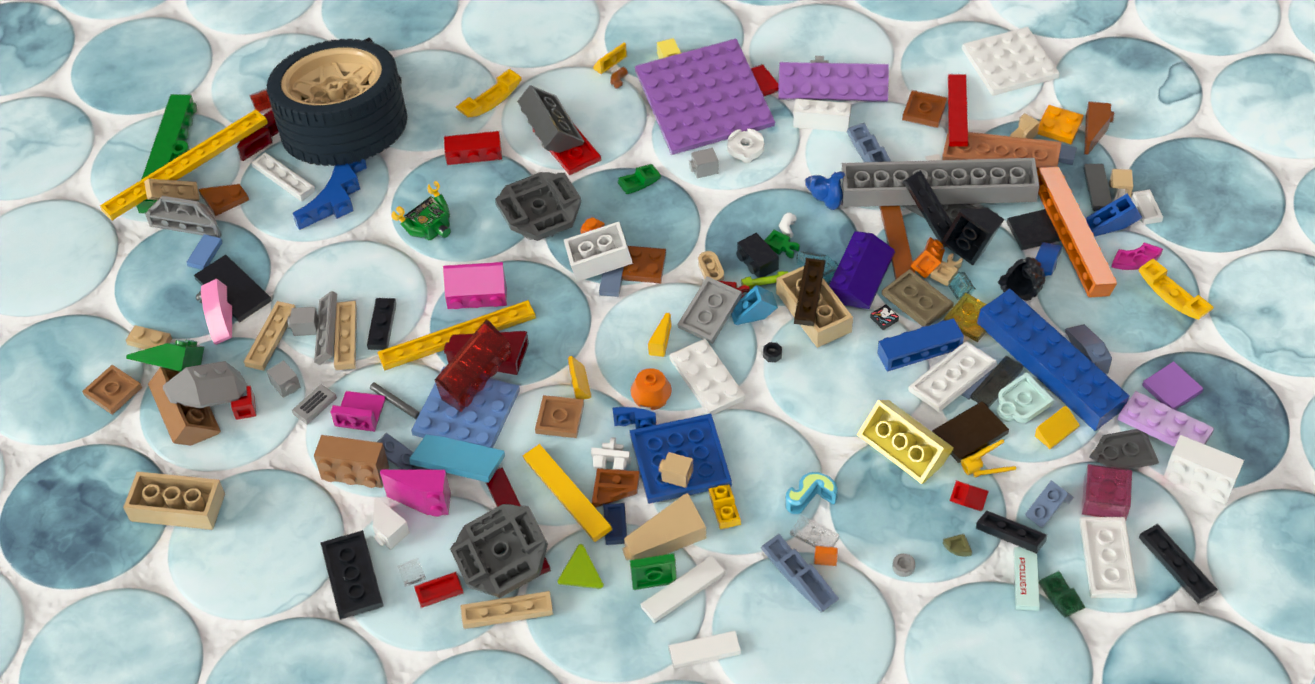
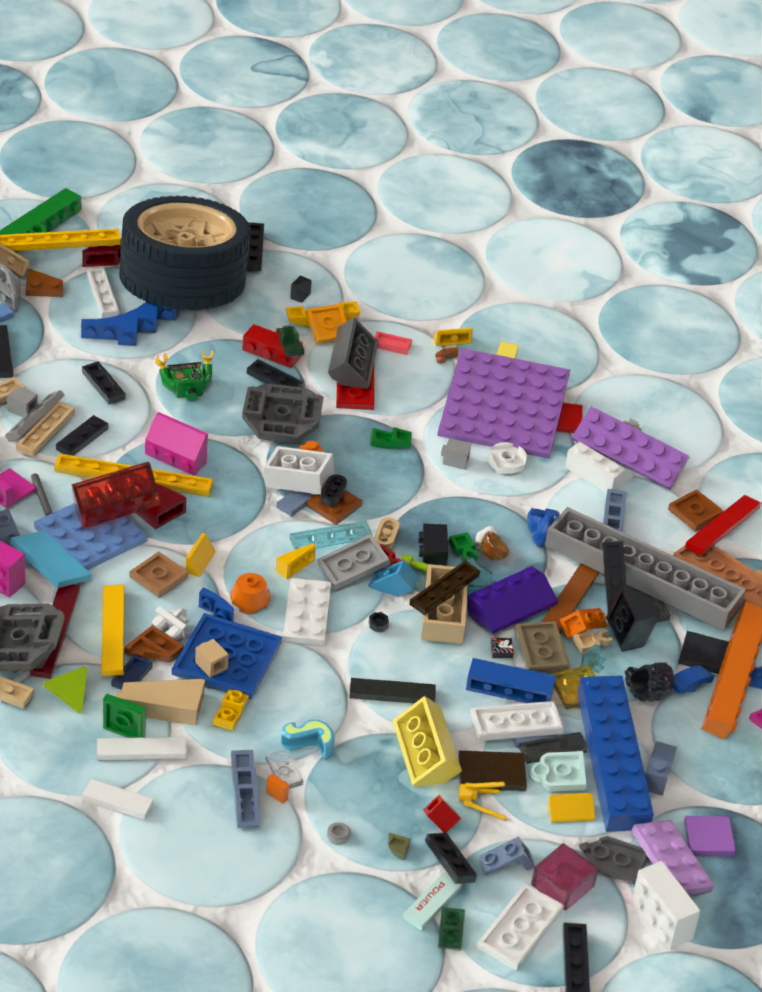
camera: 25 degrees right, 10 degrees down
(358, 262) = (103, 383): none -> black plate
(451, 82) = (300, 289): none -> black slope
(489, 136) = (289, 341): none -> clear green slope
(497, 175) = (272, 375): none -> black plate
(501, 101) = (325, 322): none -> light orange plate
(567, 90) = (393, 343): none -> coral tile
(640, 253) = (333, 490): none -> black plate
(666, 296) = (331, 535): none -> clear light blue tile
(805, 231) = (494, 547): none -> clear orange piece
(835, 408) = (390, 690): none -> pearl dark grey tile

